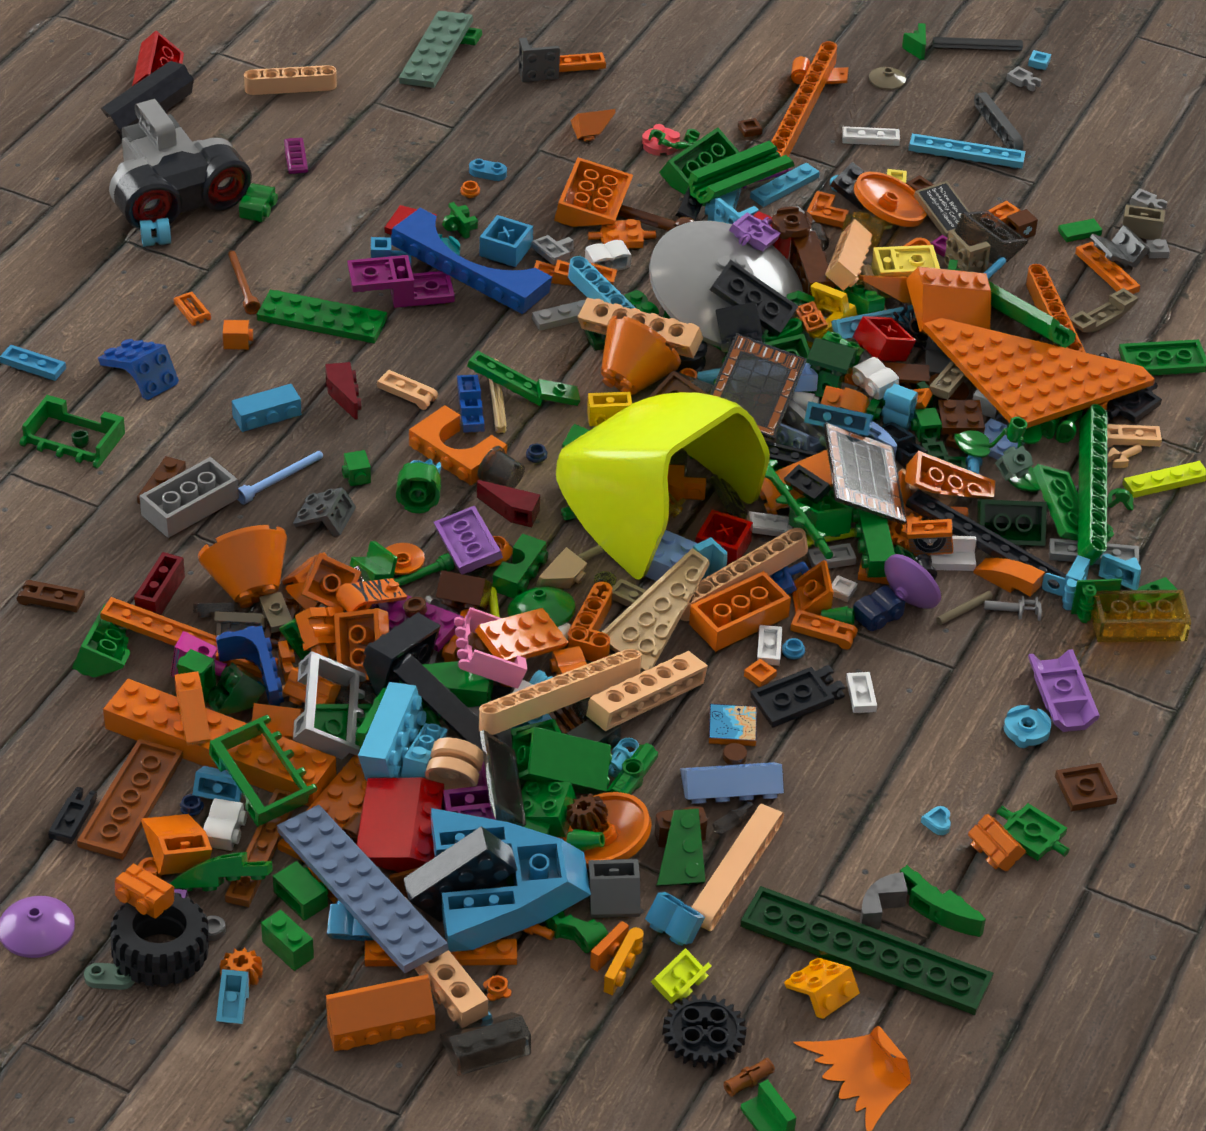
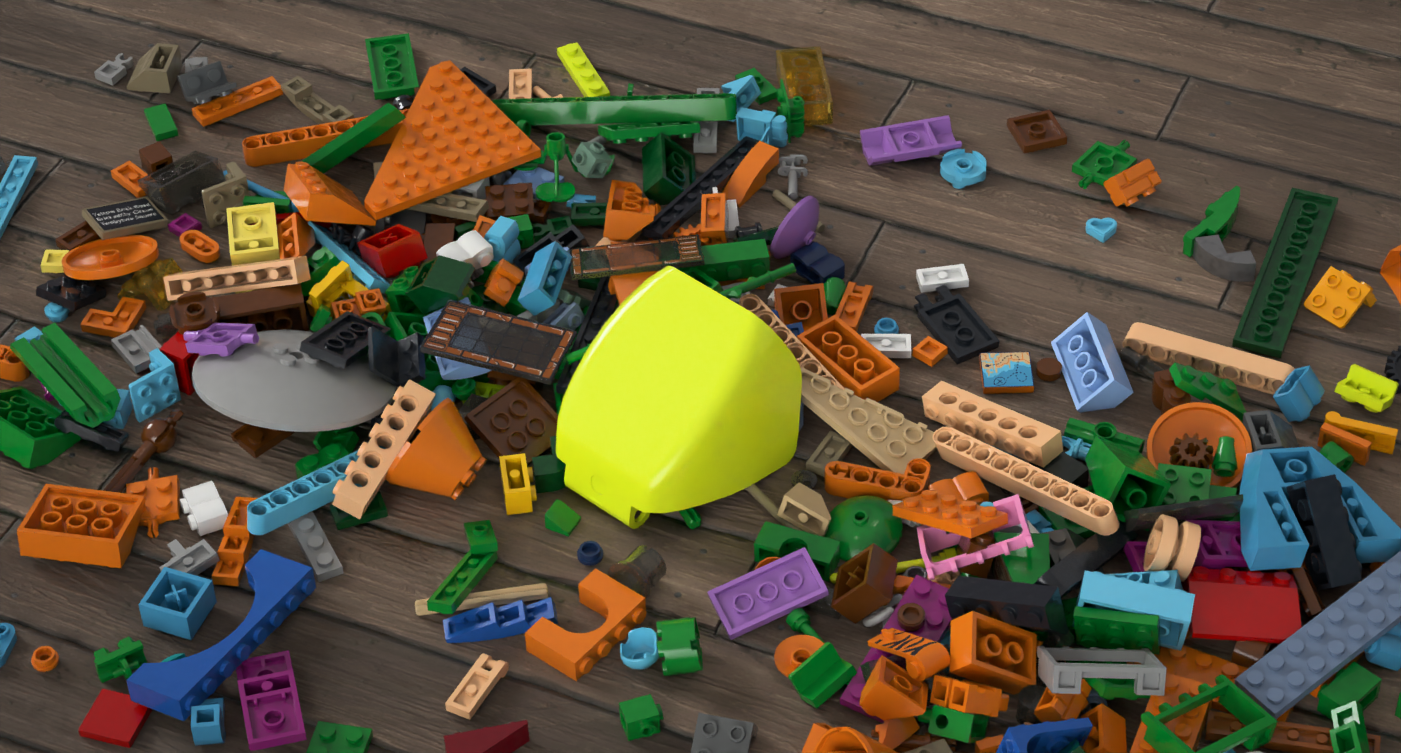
camera: 90 degrees left, 0 degrees up
(511, 503) = (690, 565): dark red slope -> none

